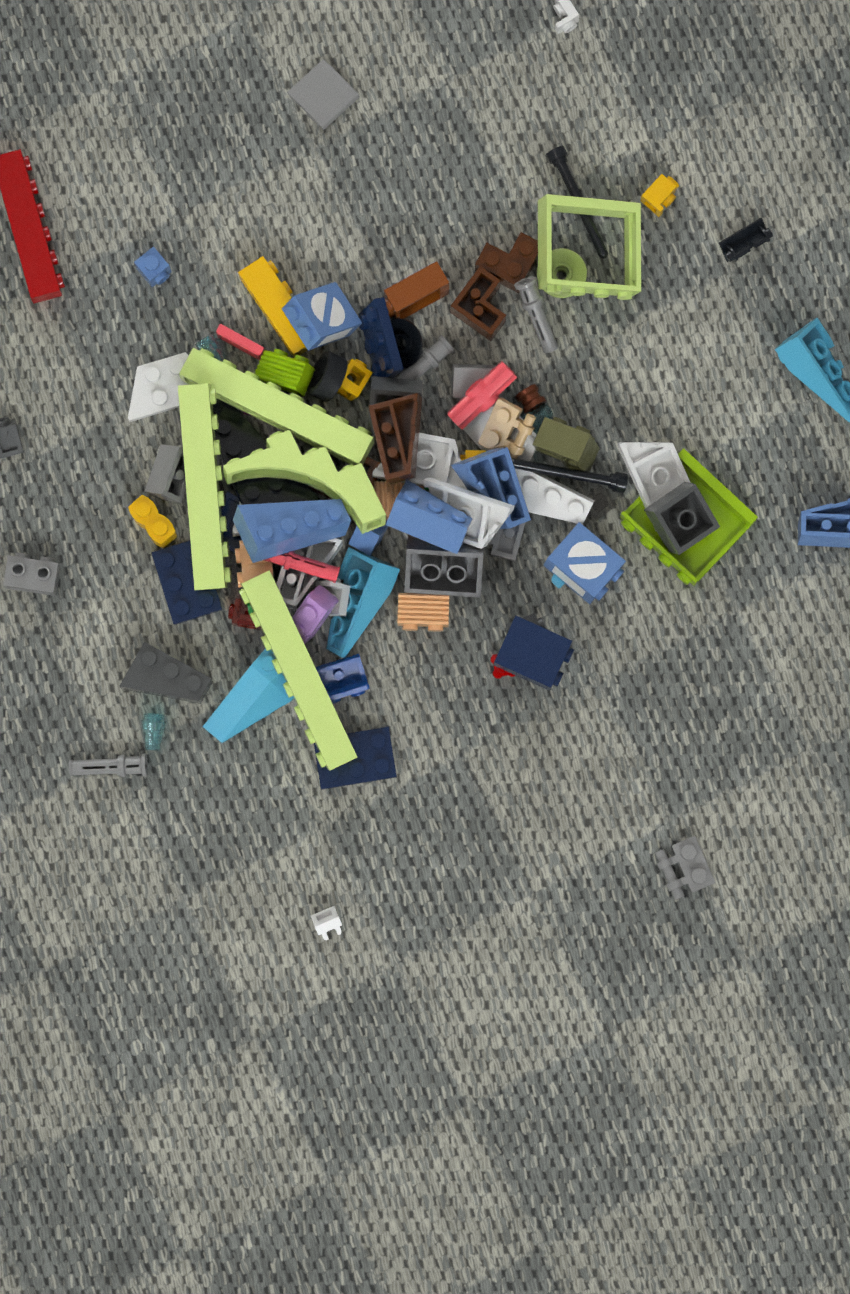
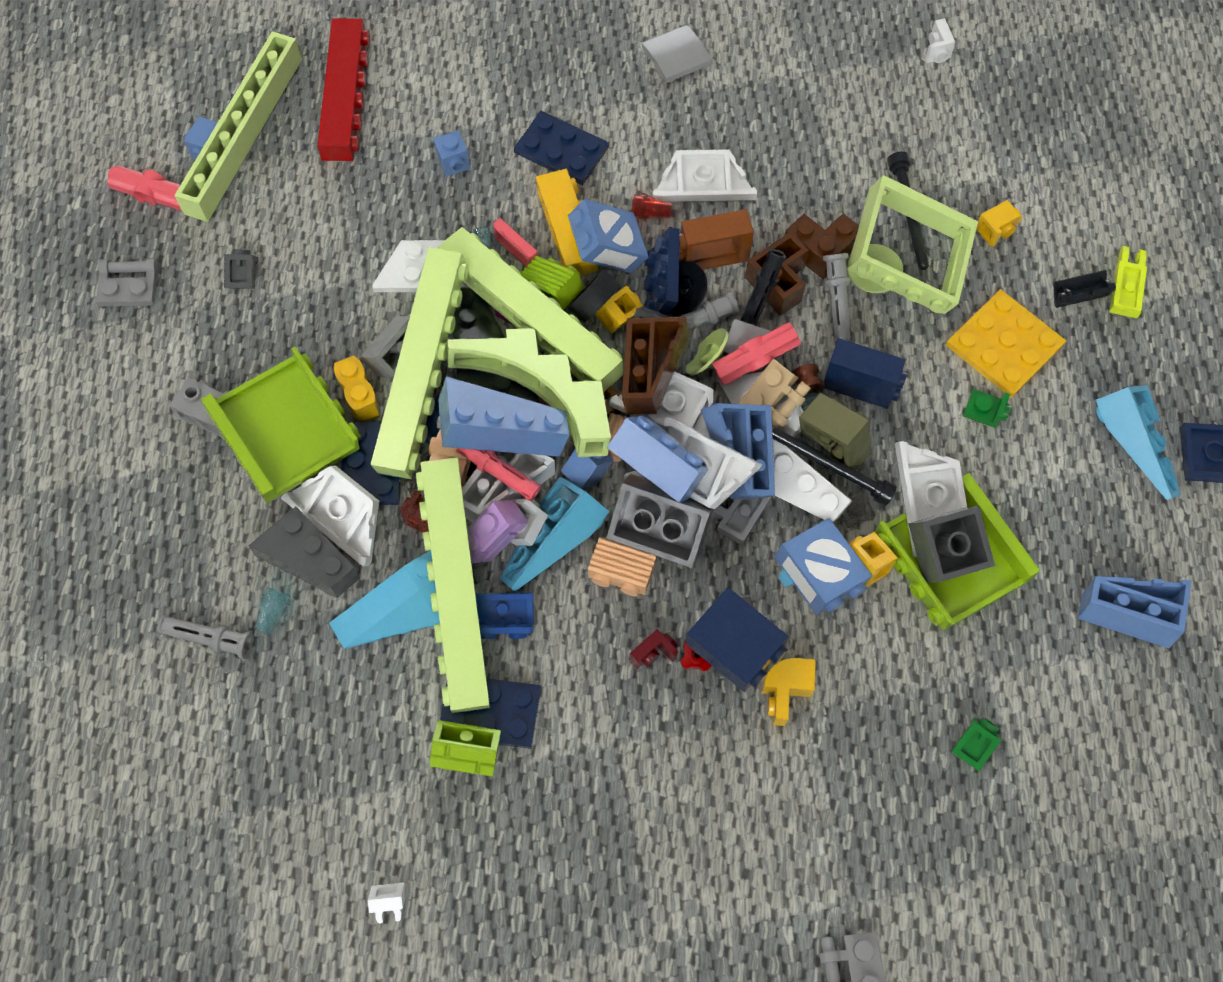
camera: 15 degrees right, 15 degrees down
(107, 575) = (283, 426): none -> lime panel
(177, 632) = (339, 511): none -> white wing
(247, 227) = (561, 146): none -> dark blue plate
(346, 268) = (650, 207): none -> clear red cone
(347, 793) = (464, 748): none -> lime brick
(386, 222) = (704, 177): none -> white wing
(440, 399) = (708, 352): none -> yellowish green dish
(465, 675) = (647, 652): none -> dark red bracket
(472, 324) = (765, 282): none -> black pin
(577, 383) = (865, 373): none -> dark blue brick
(582, 662) = (788, 679): none -> yellow brick
(629, 540) = (874, 555): none -> yellow brick
(687, 379) = (987, 408): none -> green bracket
(690, 311) = (1005, 343): none -> yellow plate
(739, 670) = (977, 742): none -> green bracket
(784, 222) = (1129, 284): none -> neon yellow hinge

